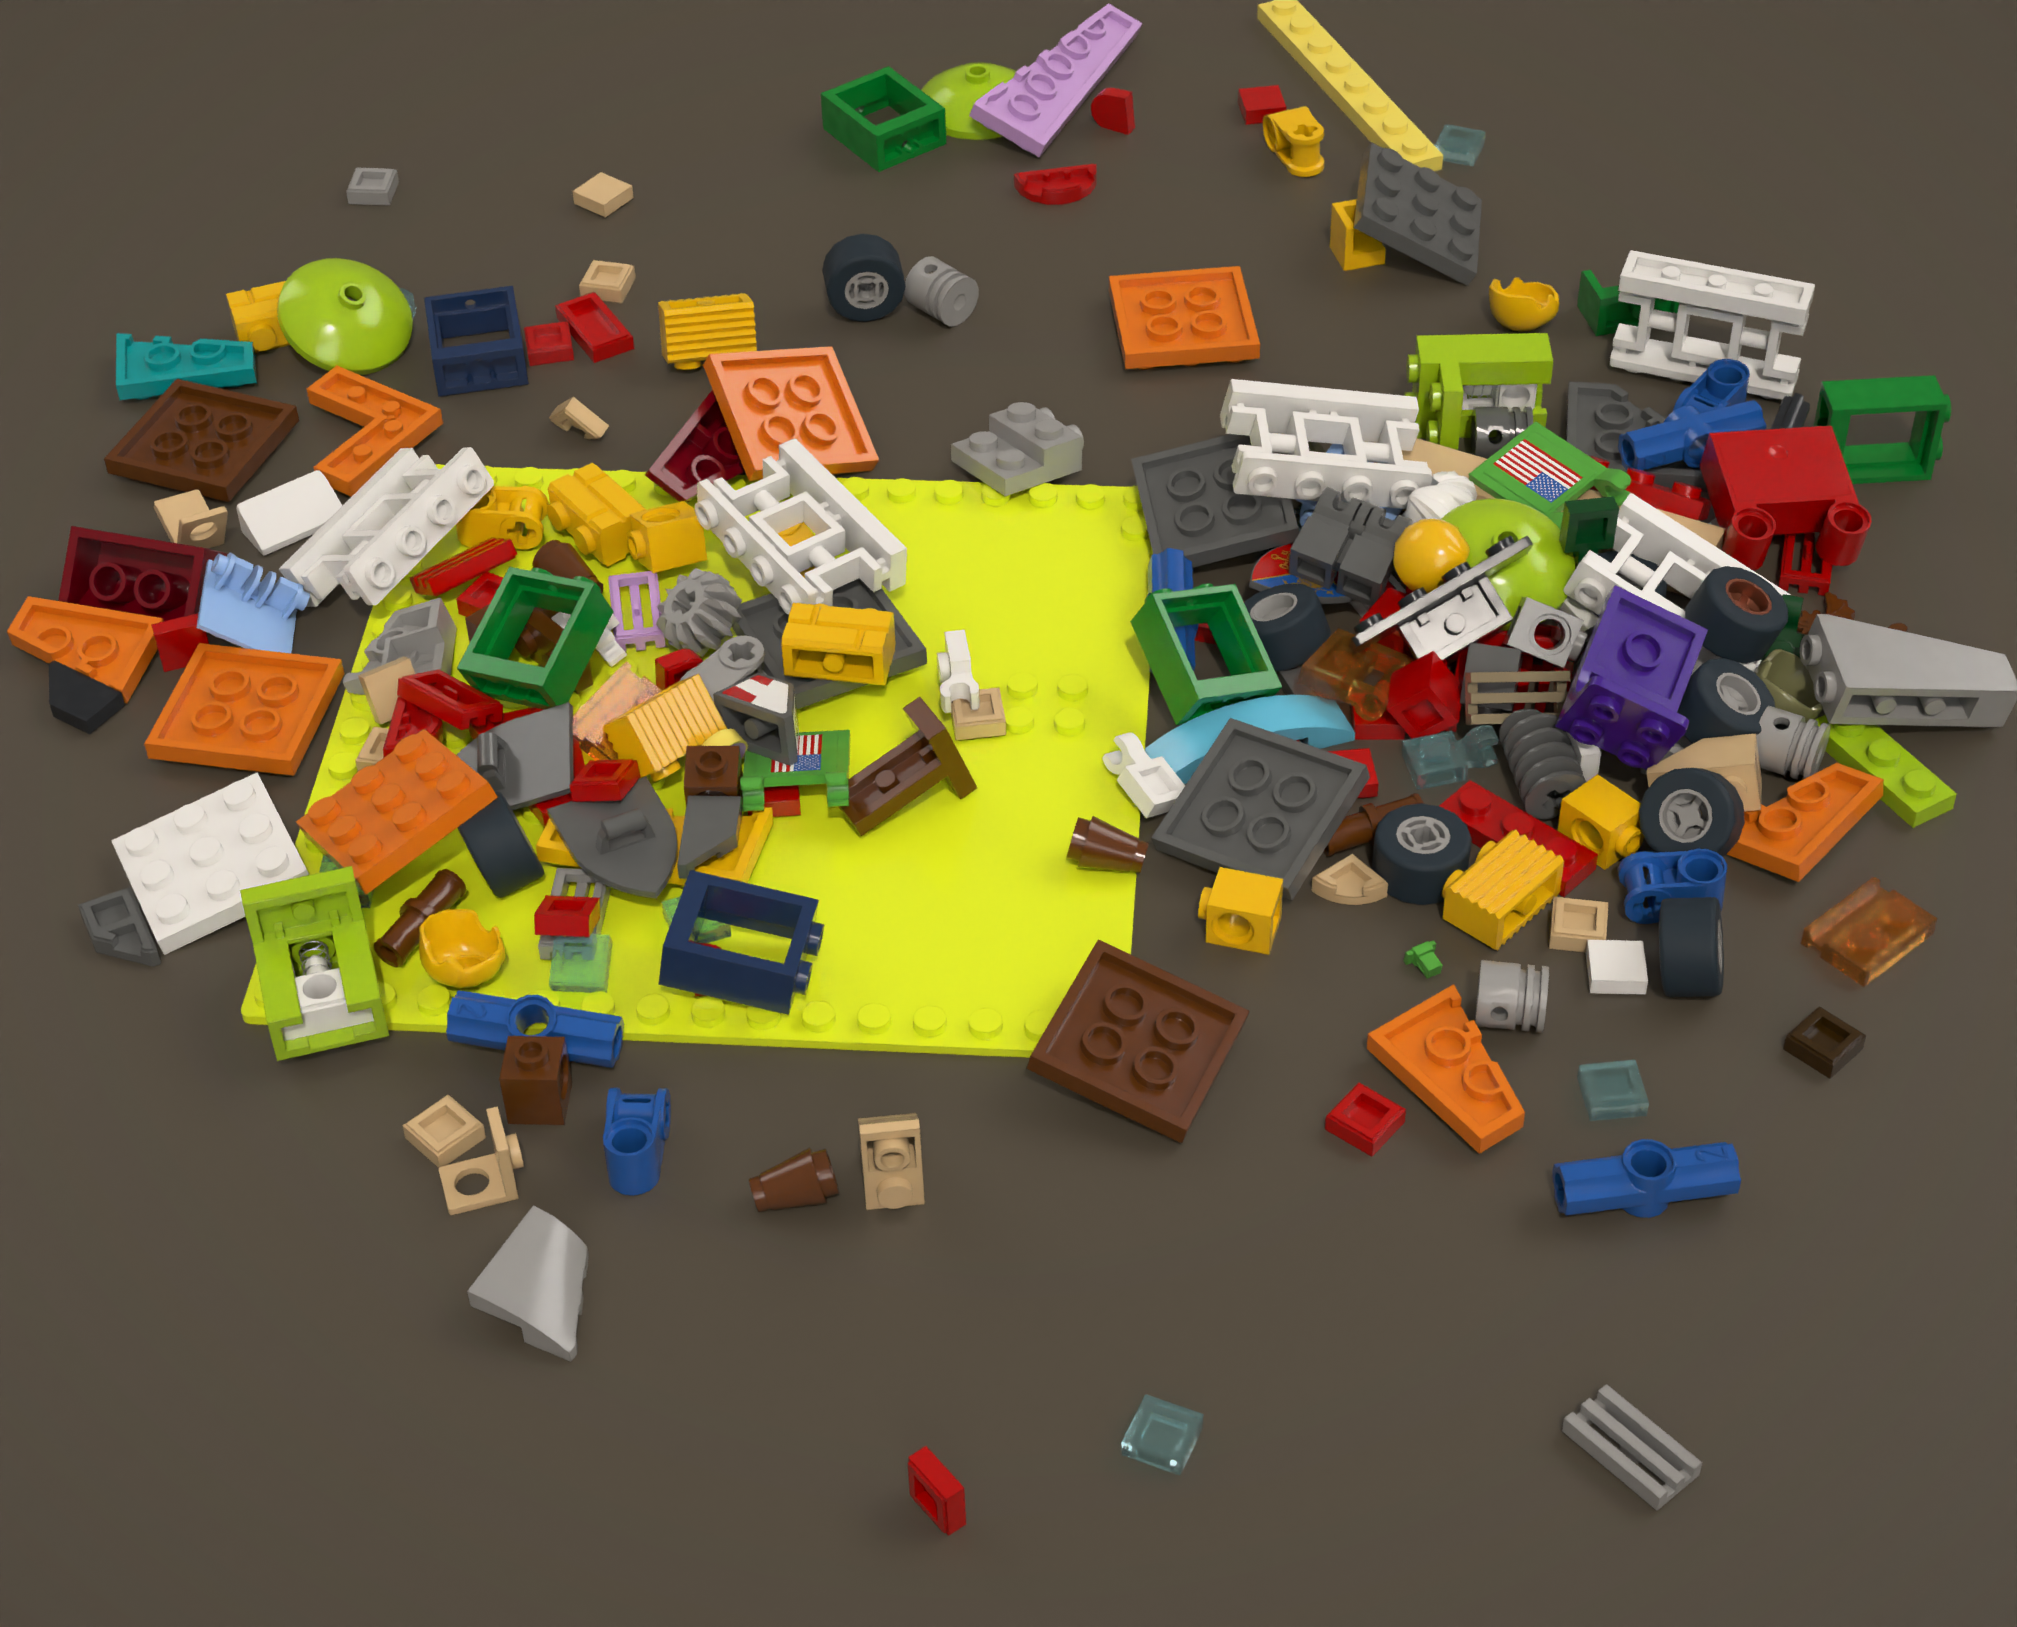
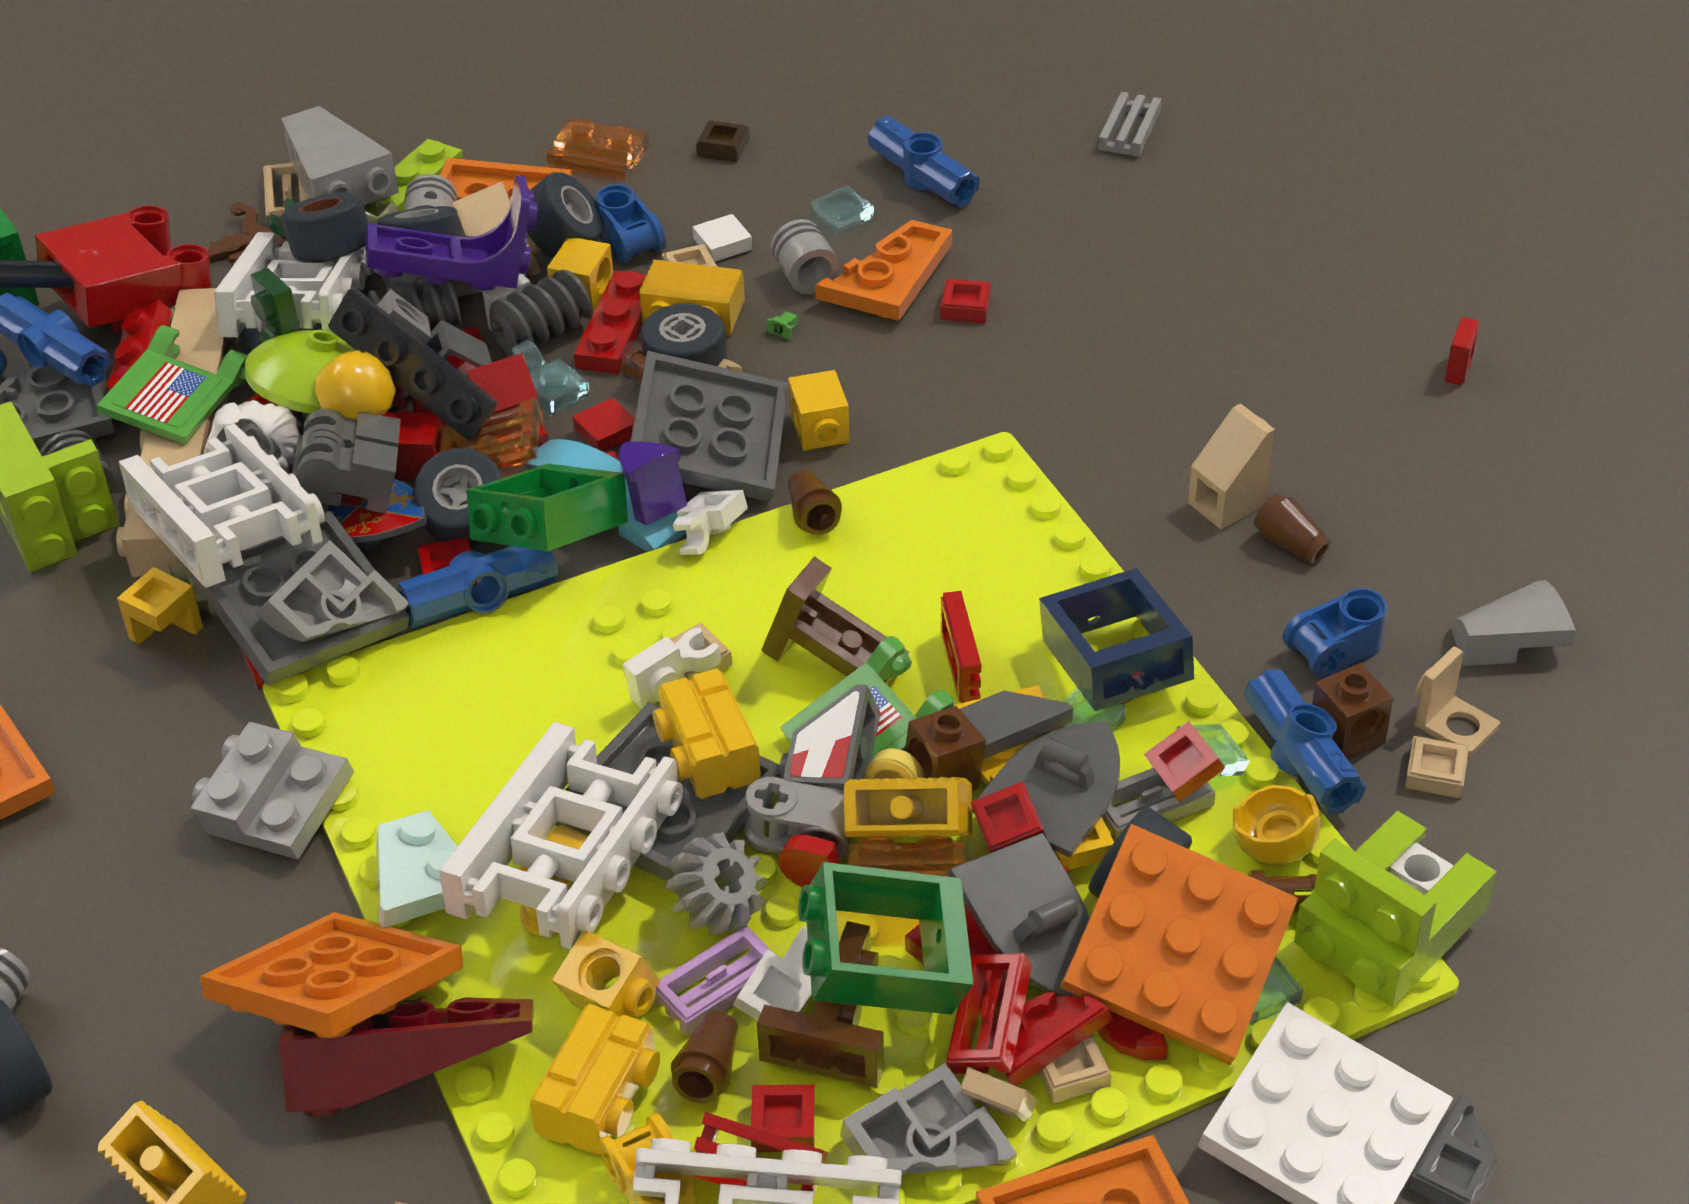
camera: 120 degrees left, 0 degrees up
(832, 858) = (960, 647): none -> red tile
(886, 492) = (409, 864): none -> light aqua wing
(1138, 1040) = (1005, 405): reddish brown plate -> none
(1162, 1434) = (1310, 291): clear light blue tile -> none
(1183, 498) = (329, 597): none -> light grey slope
(1188, 716) = (652, 479): none -> dark purple tile
(1473, 698) = (480, 328): dark tan tile -> none
(1691, 947) = (696, 187): black wheel -> none

